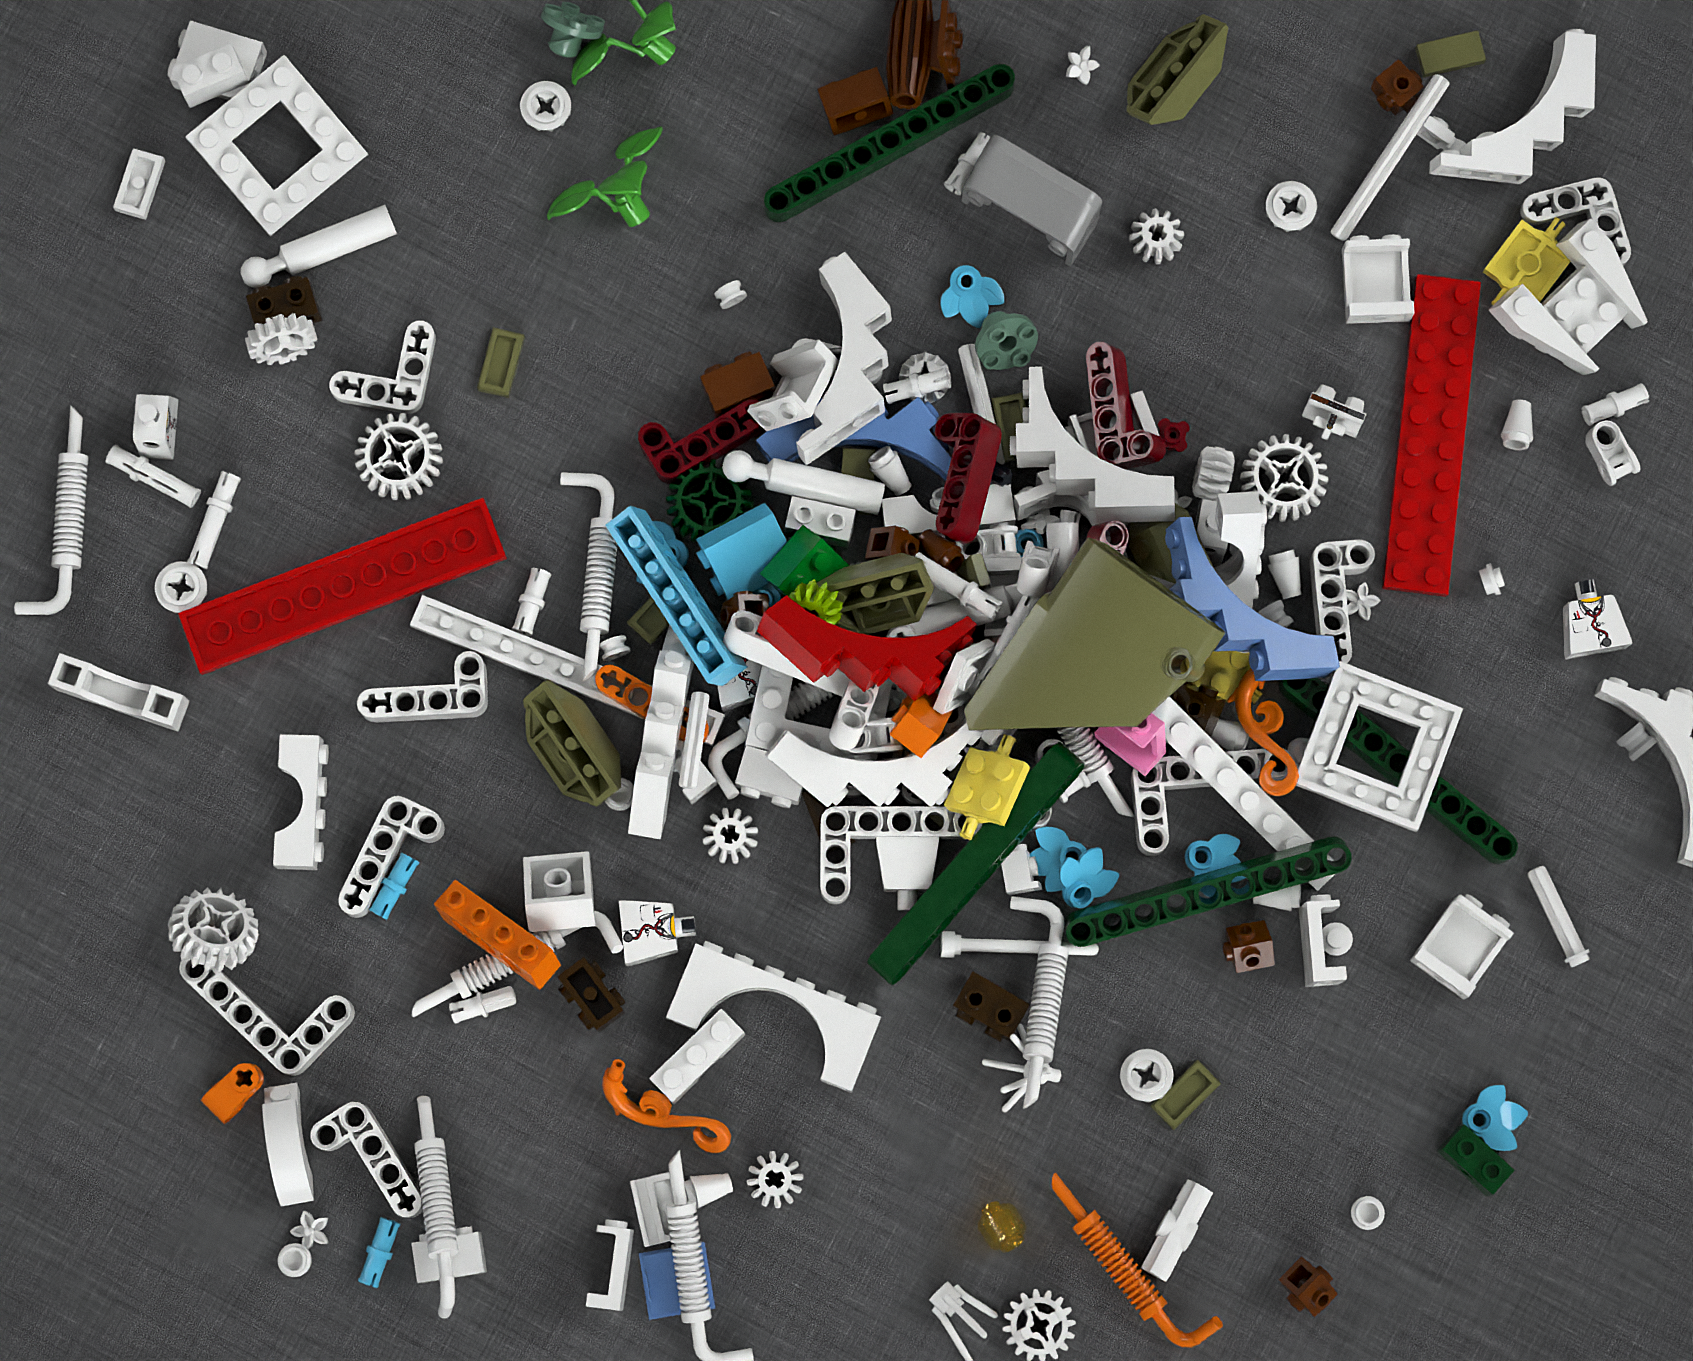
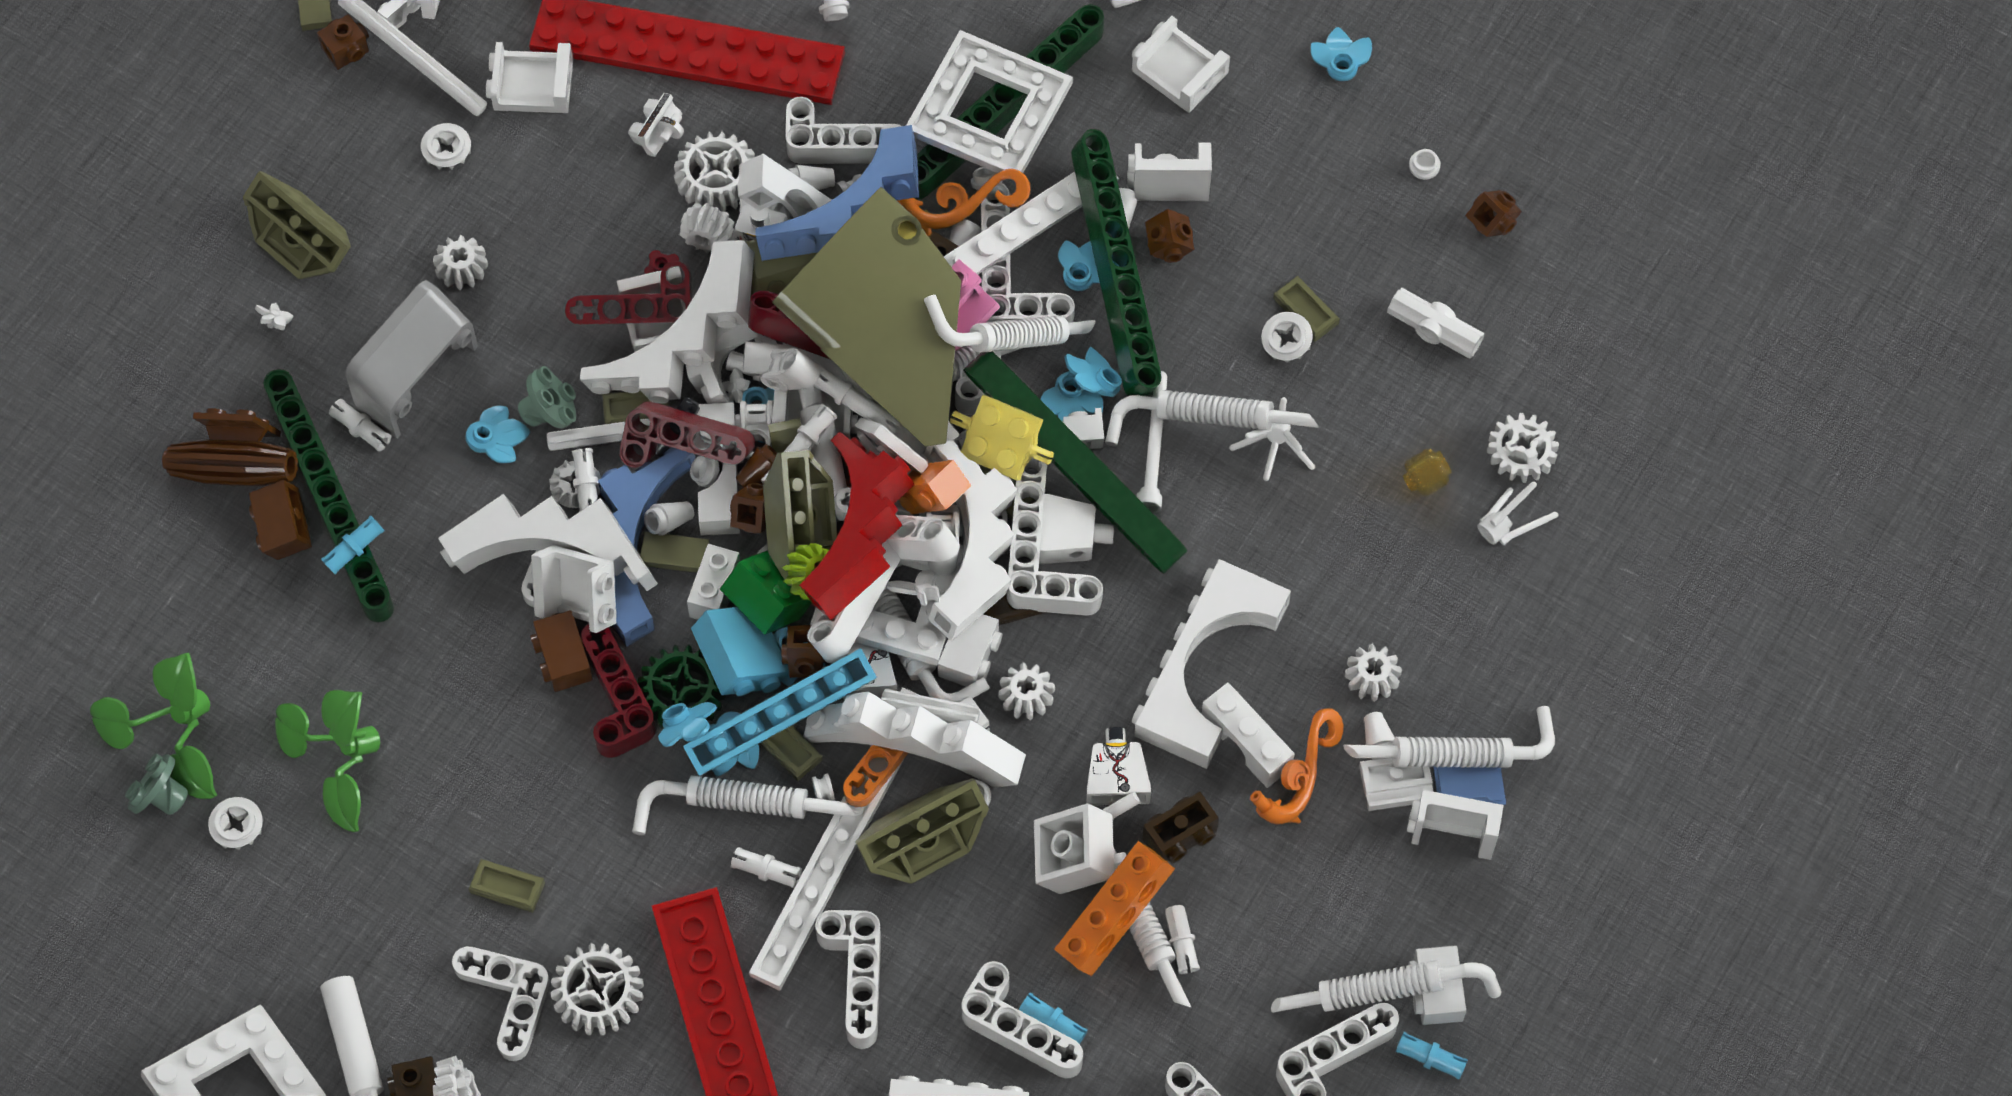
camera: 85 degrees left, 15 degrees down
(656, 506) = (685, 723): none -> medium azure plate
(730, 294) = (465, 654): white bush -> none
(807, 482) = (674, 586): white piece -> none
(810, 714) = (922, 587): none -> white piece
(825, 170) = (352, 544): none -> medium azure pin
(993, 1001) = (1214, 464): dark brown brick -> none
(1099, 786) = (1007, 334): none -> white piece
(1126, 1272) = (1475, 367): orange piece -> none
(1361, 602) = (843, 117): white plant -> none
(1475, 1160) = (1380, 69): dark green brick -> none

